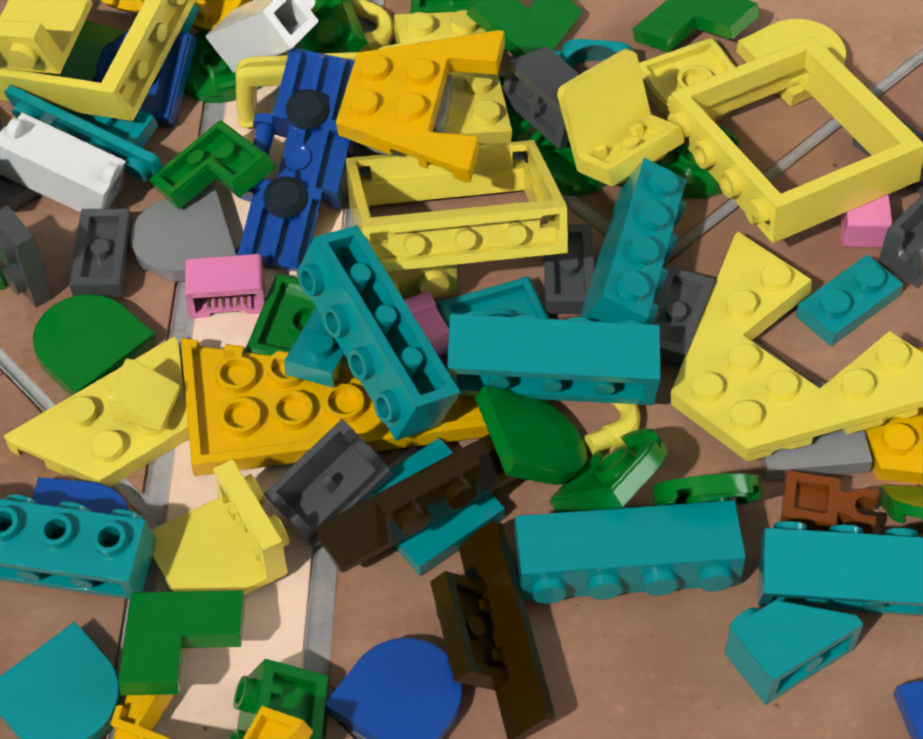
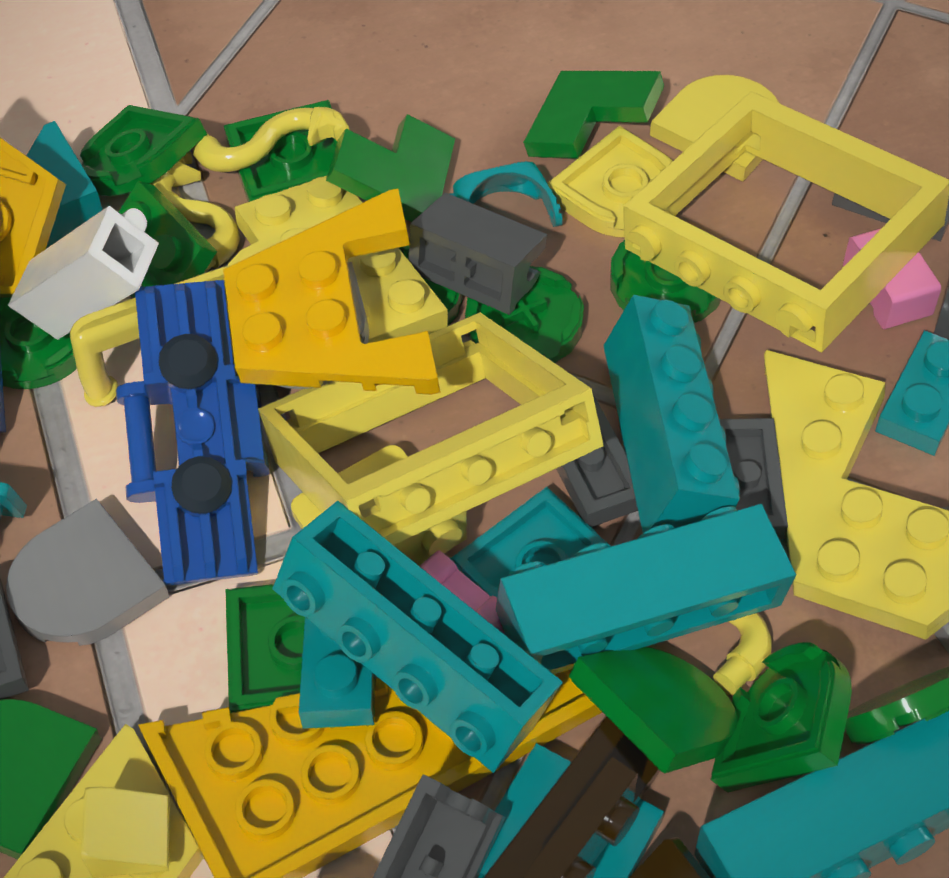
camera: 20 degrees left, 0 degrees up
(214, 155) = (82, 458): green tile -> none
(224, 285) = (165, 628): bright pink piece -> none
(612, 120) = (565, 266): light yellow bracket -> none

